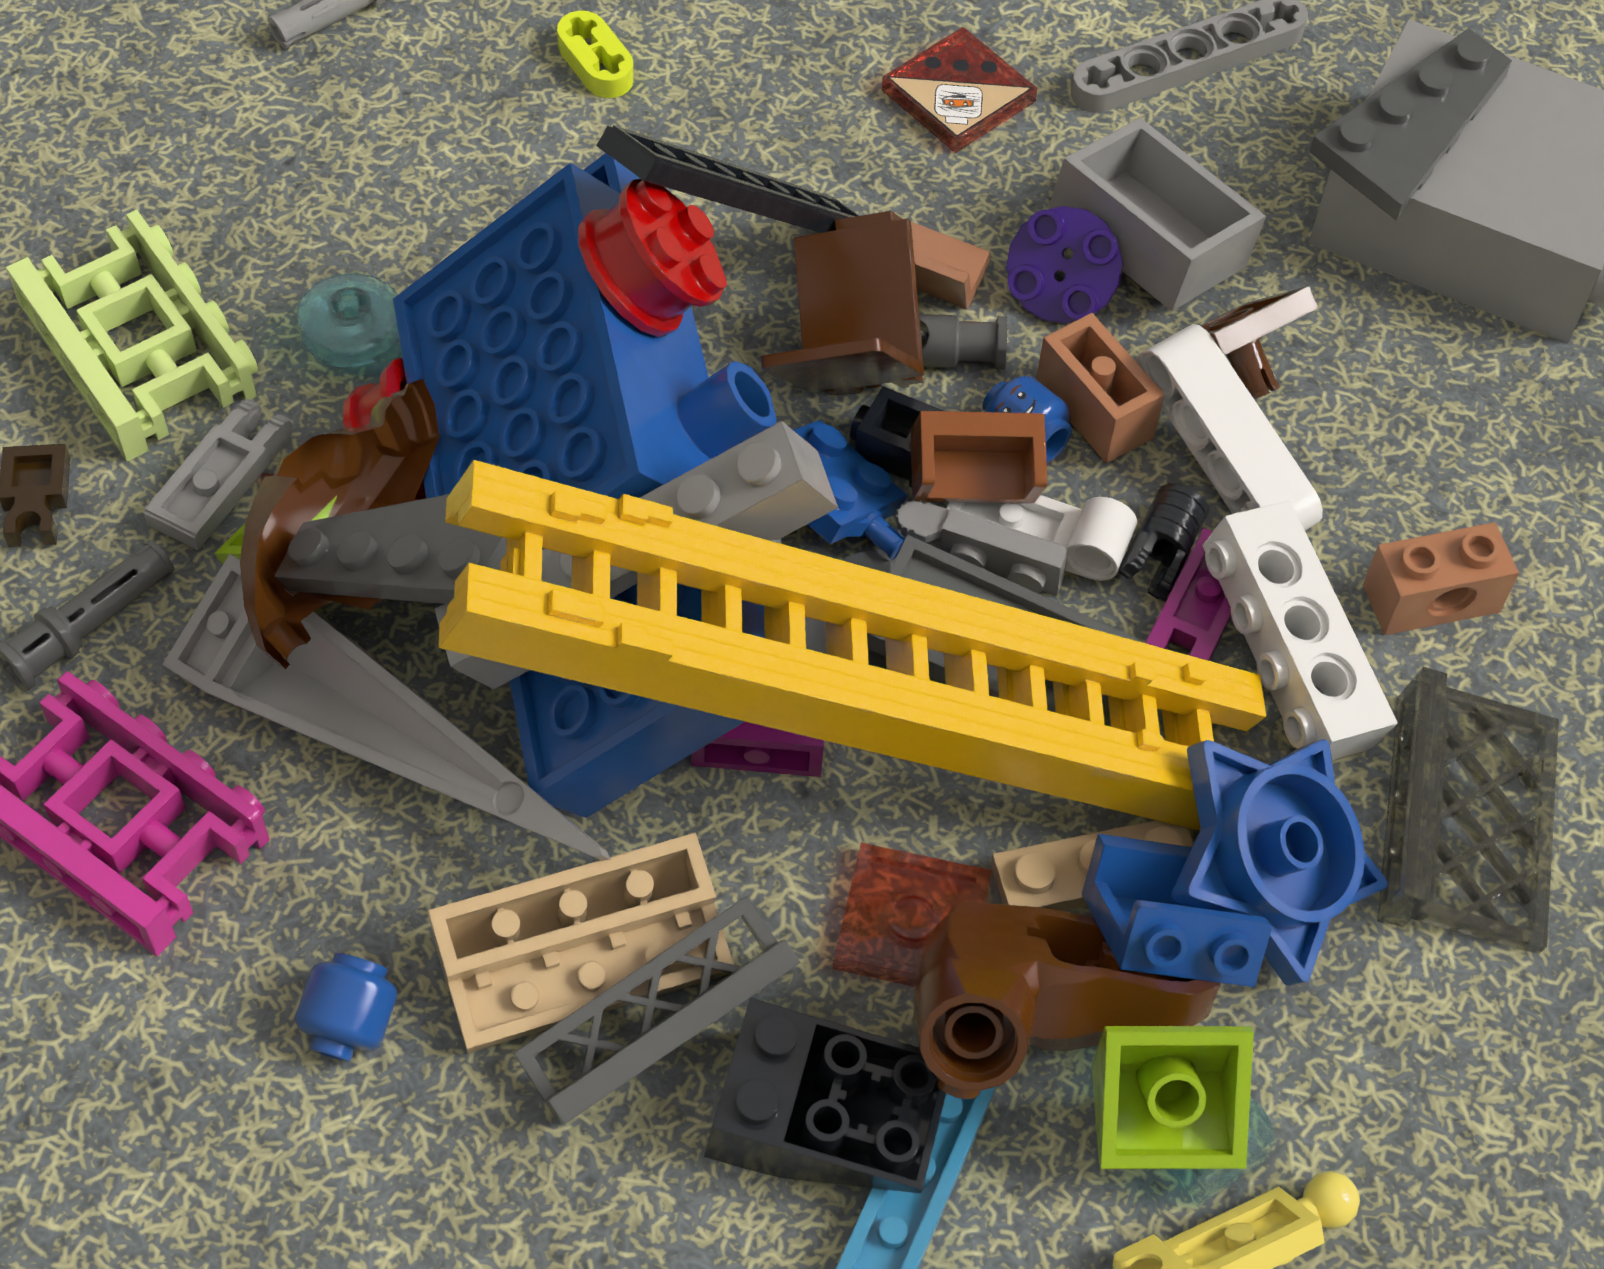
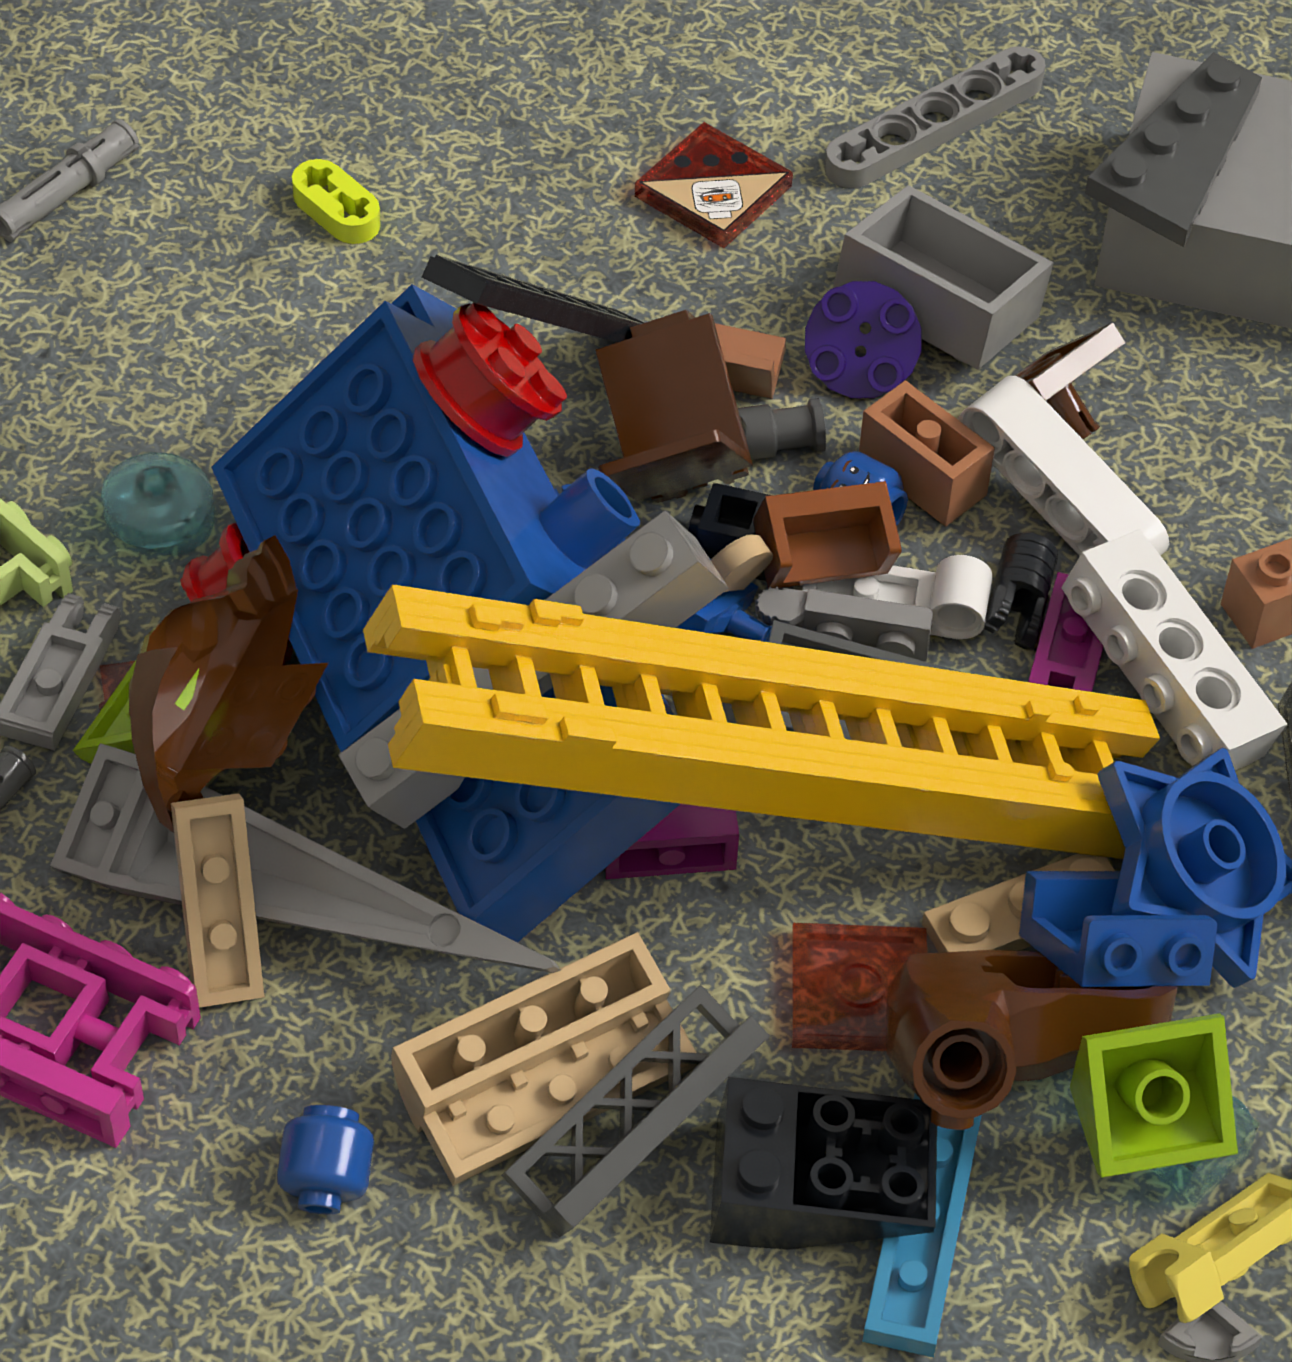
camera: 10 degrees left, 5 degrees down
(299, 730) = (218, 899): none -> tan plate
(387, 553) = (292, 705): dark grey wing -> none
(880, 474) = (742, 561): none -> tan tile

